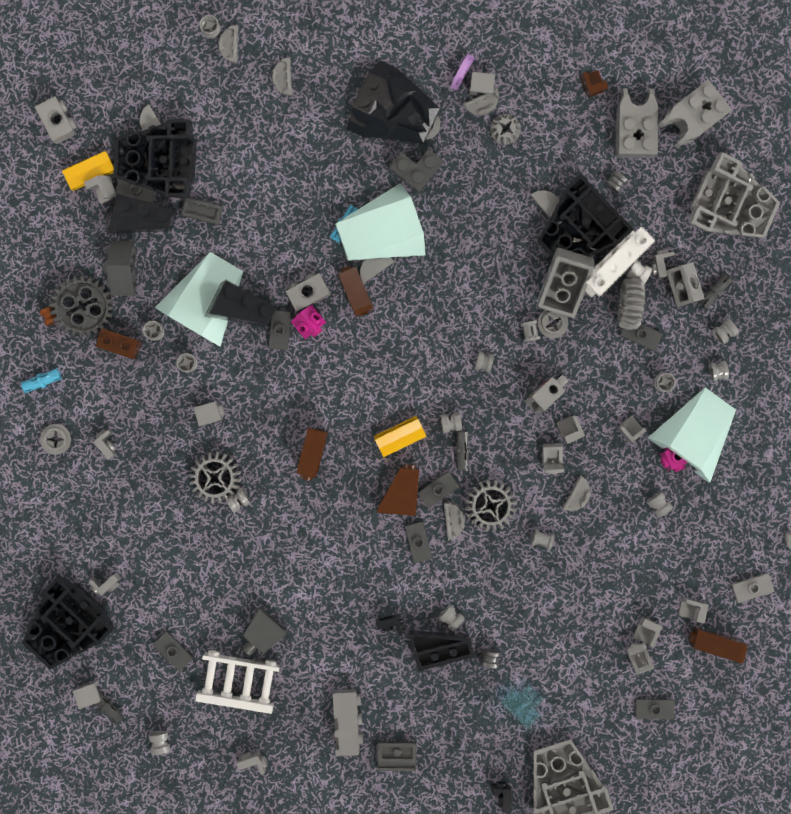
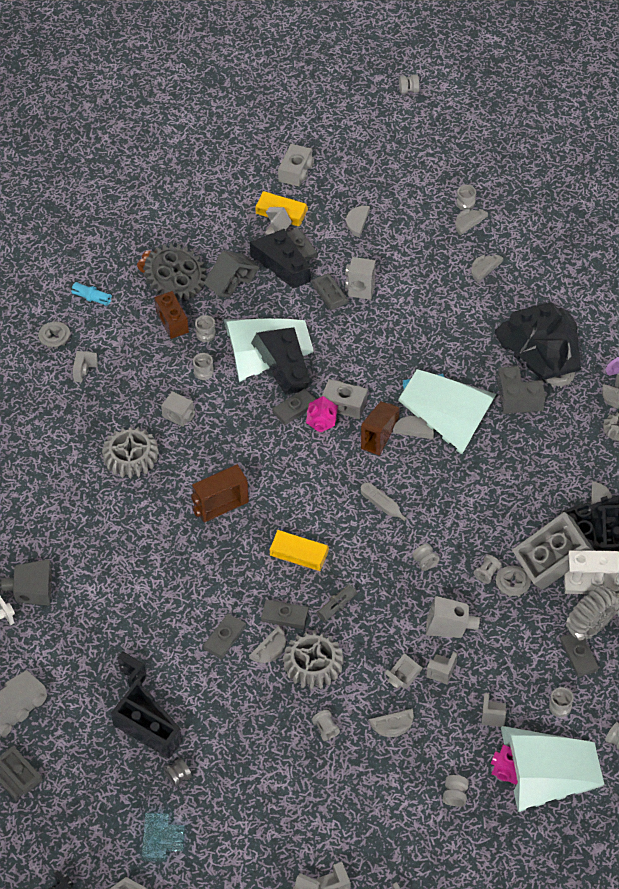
camera: 50 degrees right, 35 degrees down
(158, 158) = (339, 235): black wedge -> none
(216, 182) = (360, 278): none -> light grey brick
(238, 500) = (127, 480): light grey wheel -> none
(402, 493) = (252, 586): reddish brown slope -> none
(411, 345) = (381, 500): none -> light grey piece
(451, 422) = (350, 574): light grey wheel -> none
(451, 618) = (184, 710): light grey wheel -> none

